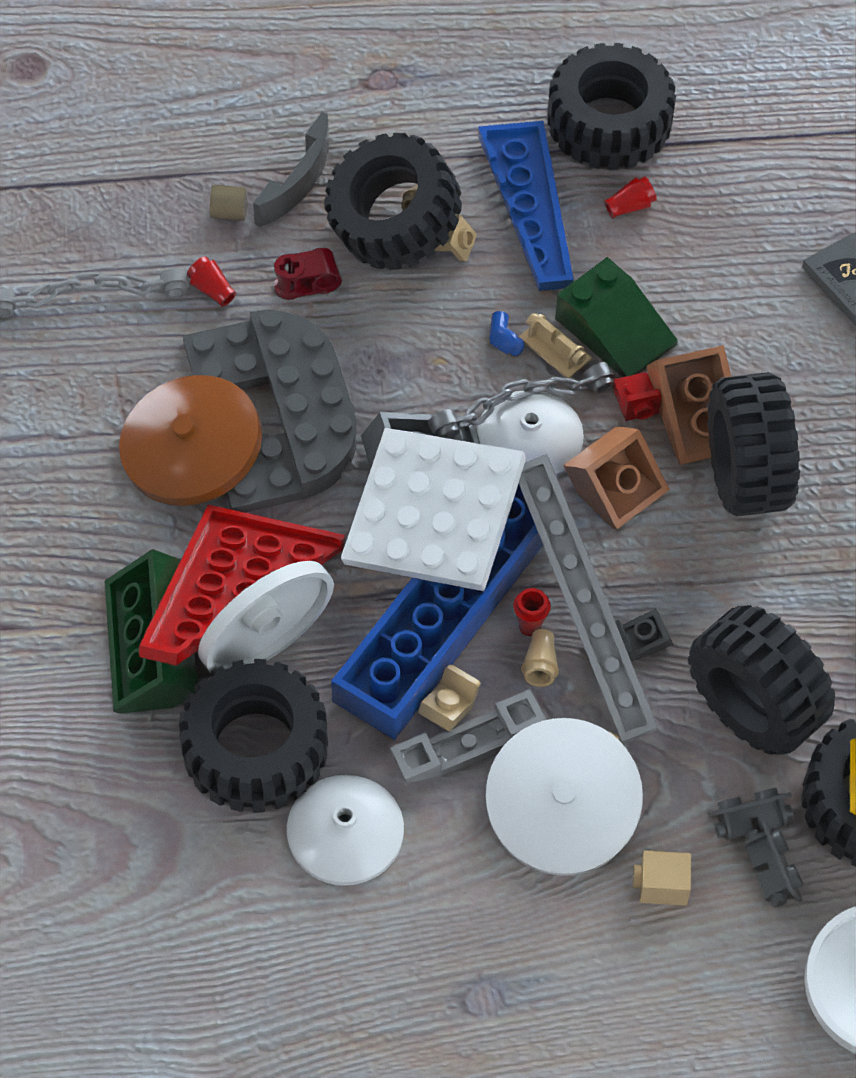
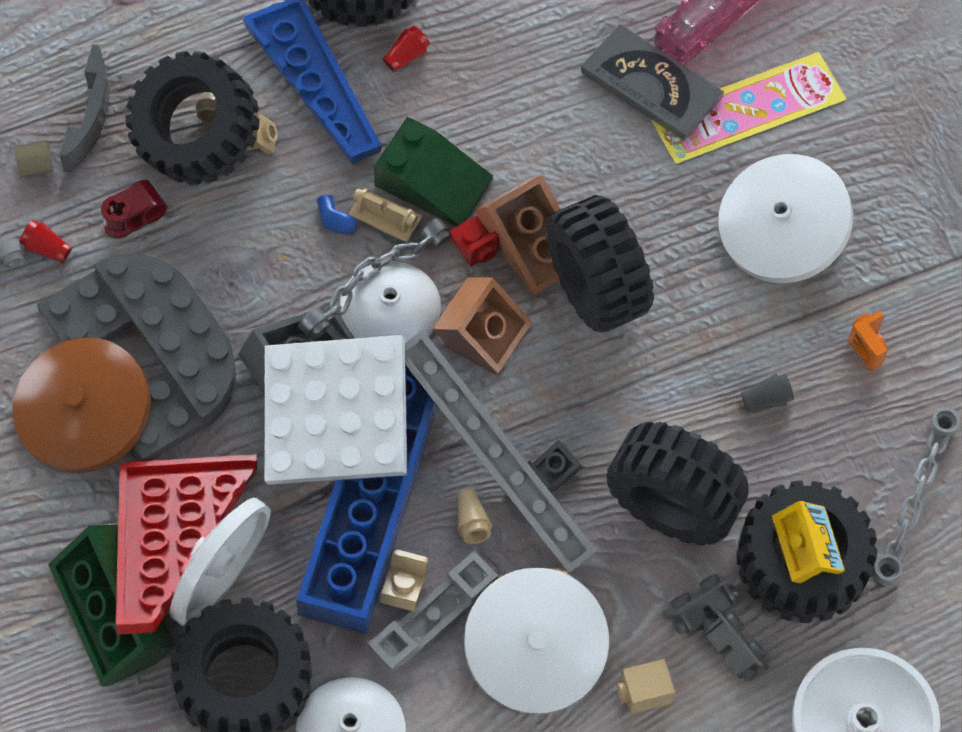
camera: 20 degrees left, 5 degrees up
(531, 610) = (450, 476): red cone -> none

